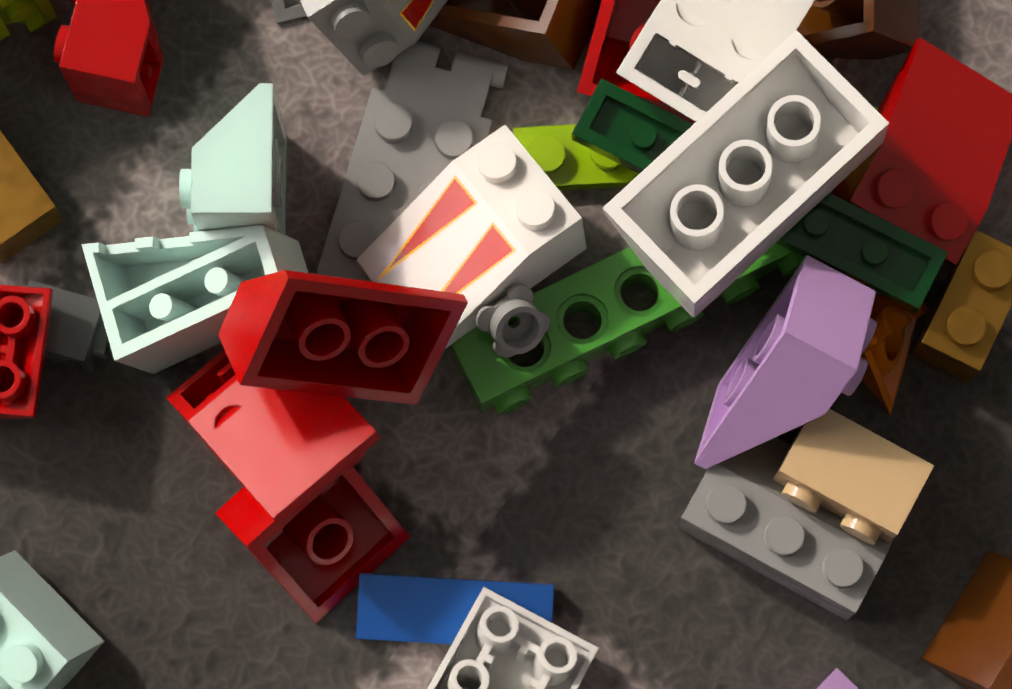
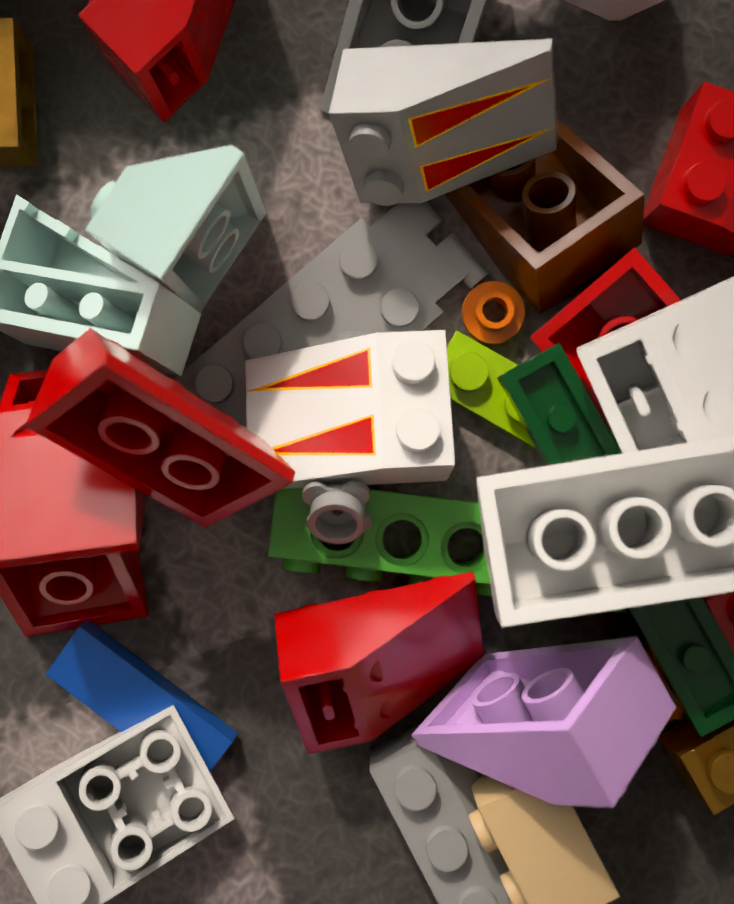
camera: 30 degrees right, 10 degrees up
(529, 112) = (485, 330): none -> orange plate
(626, 425) = (375, 657): none -> red slope

